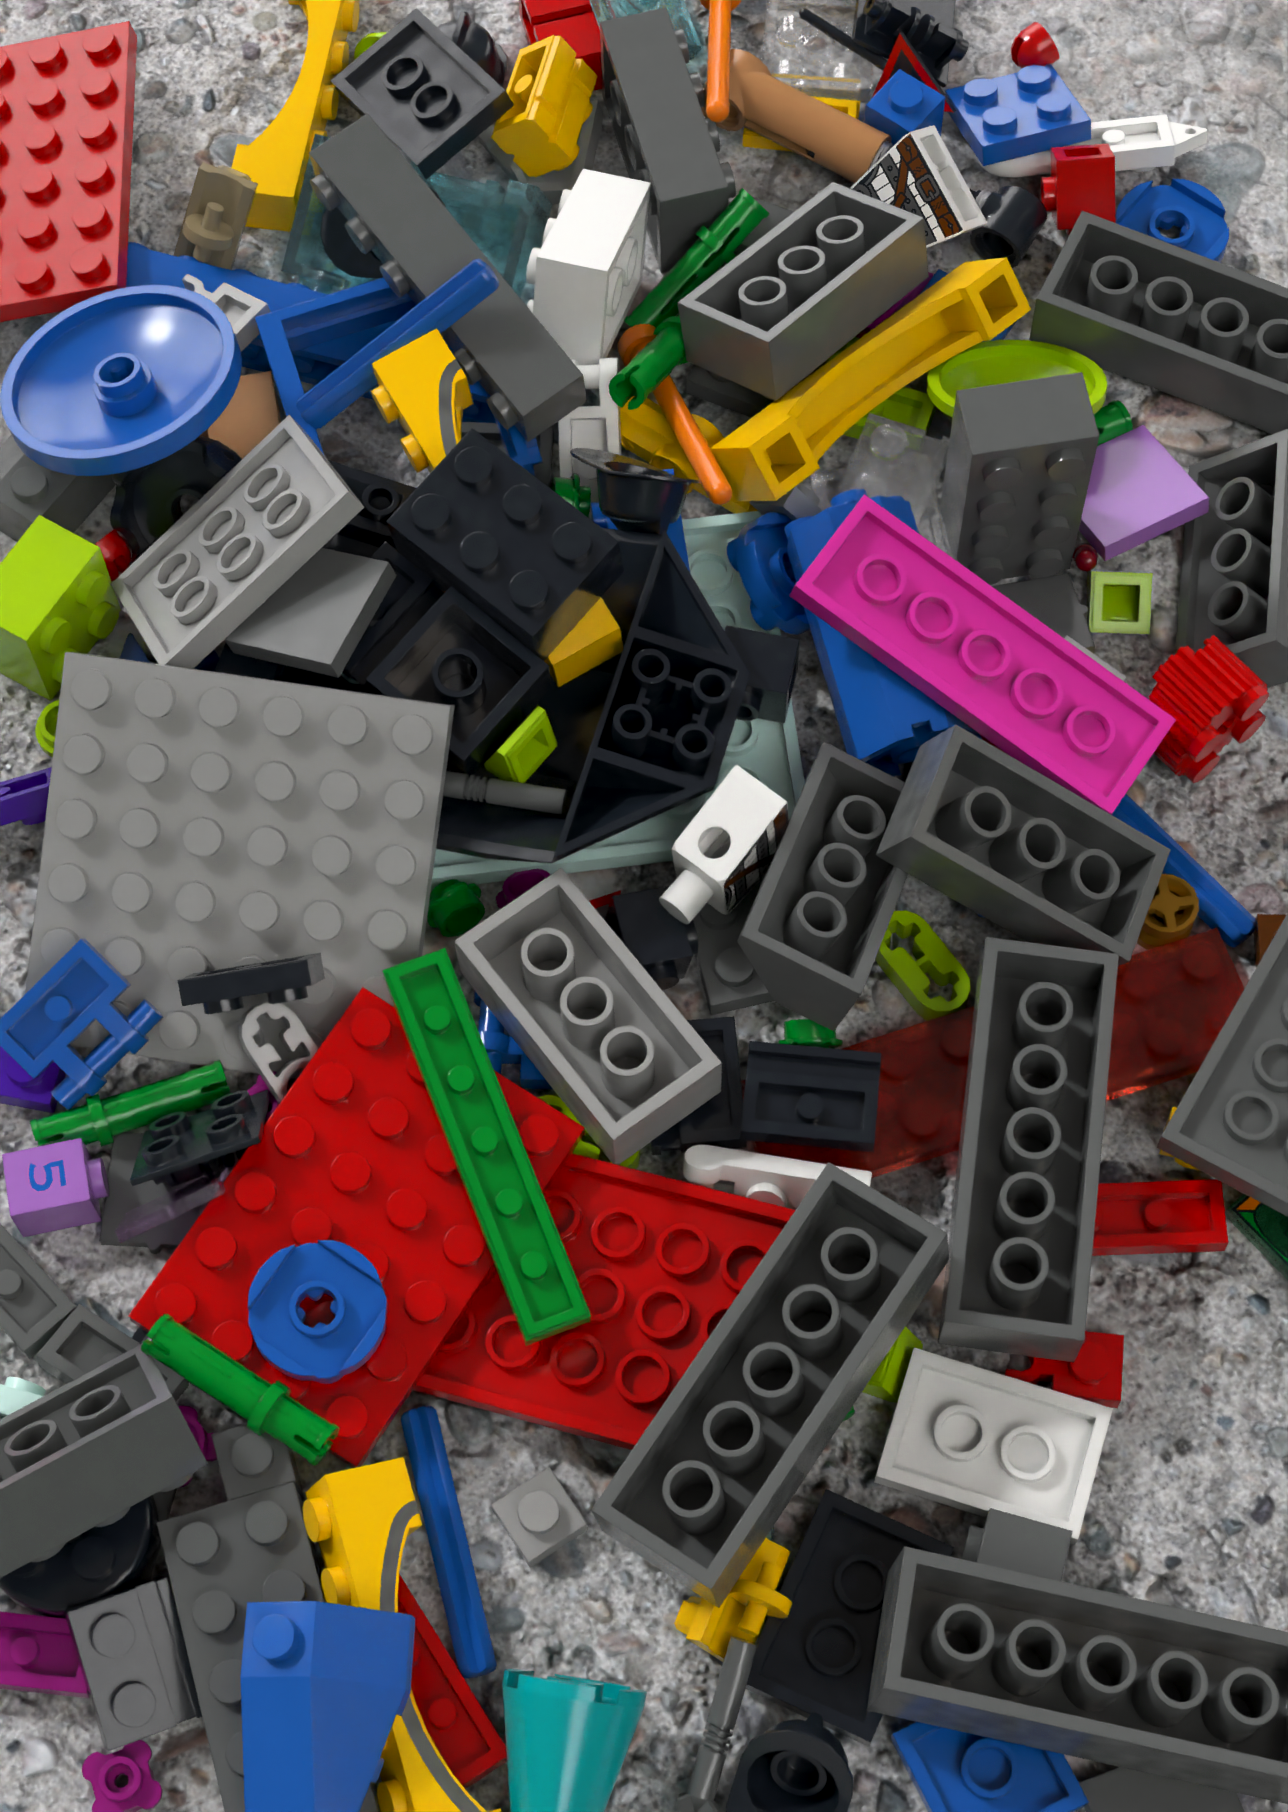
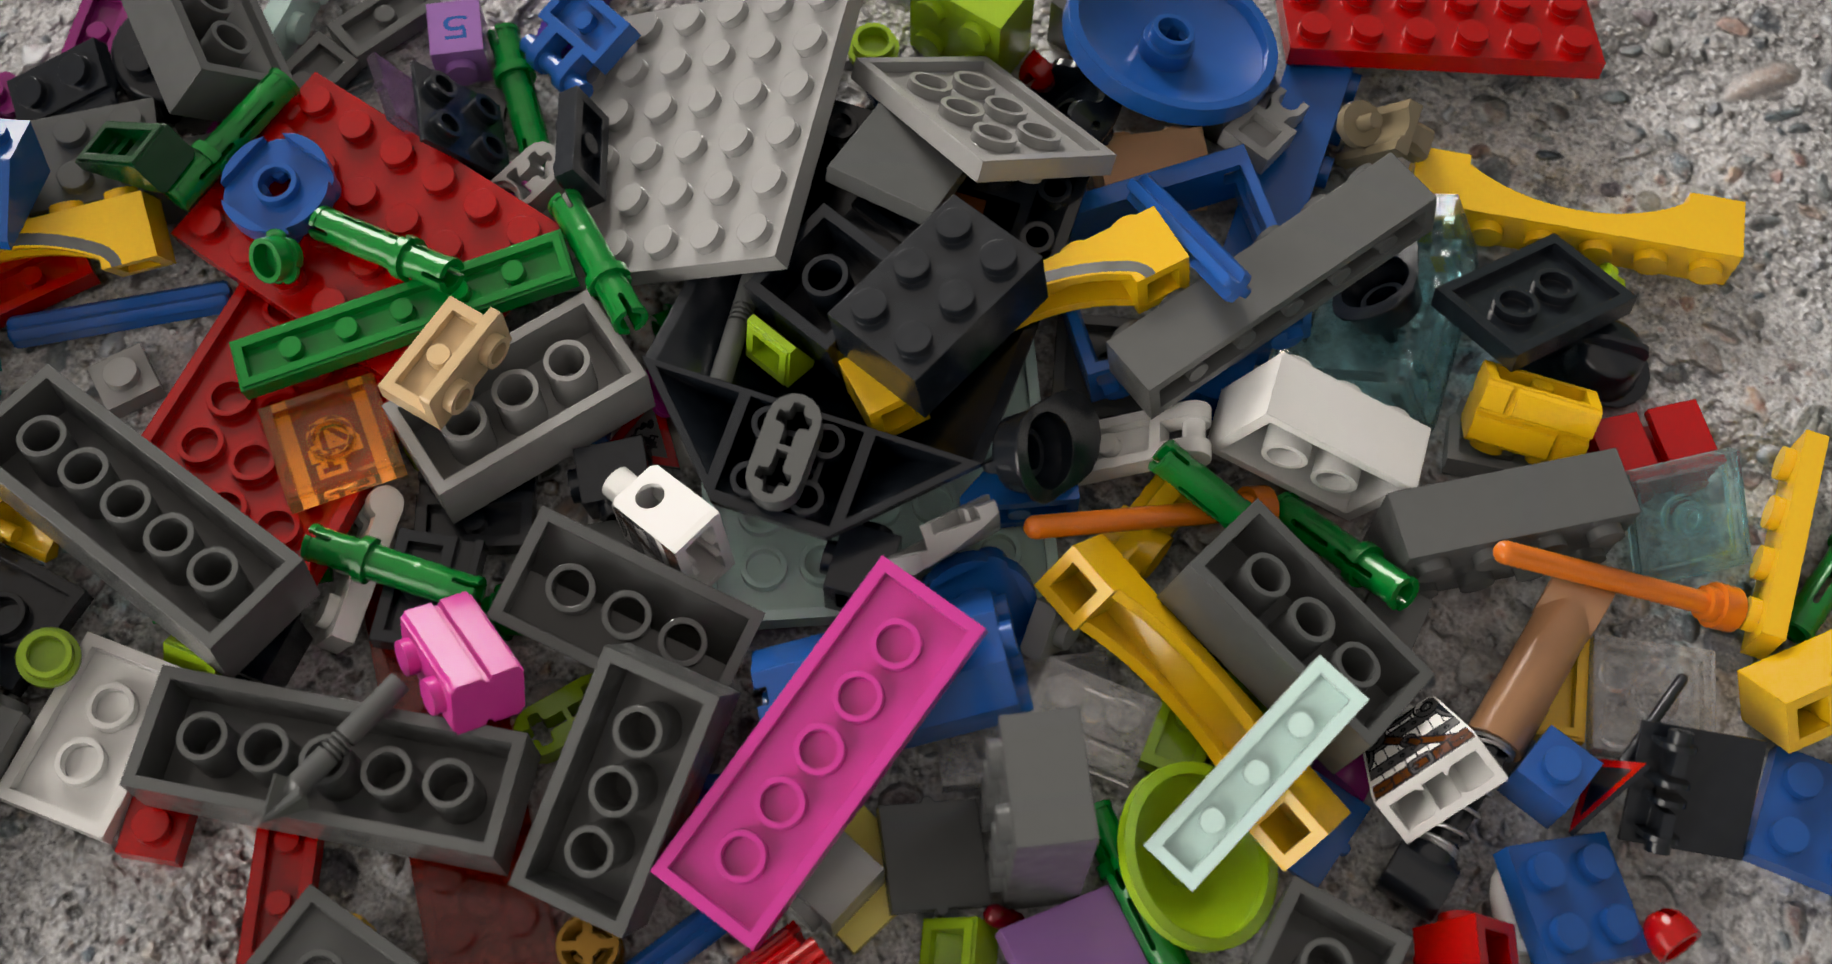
camera: 90 degrees right, 0 degrees up
(296, 1442) = (137, 154): none -> dark green slope
(407, 1170) = (400, 255): none -> green pin
(417, 934) = (606, 277): none -> green pin
(427, 1303) = (276, 257): none -> green plate
(571, 1053) = (447, 362): none -> tan bracket
(639, 1219) = (332, 443): none -> clear orange tile
(672, 696) = (772, 447): none -> dark grey beam
(738, 572) = (950, 535): none -> light grey slope
(792, 1141) = (370, 561): none -> green pin
(916, 1009) = (460, 663): none -> dark pink brick
(917, 1502) = (48, 657): none -> lime plate
(956, 297) = (1256, 772): none -> light aqua plate
(1083, 1147) = (290, 793): none -> dark grey piece

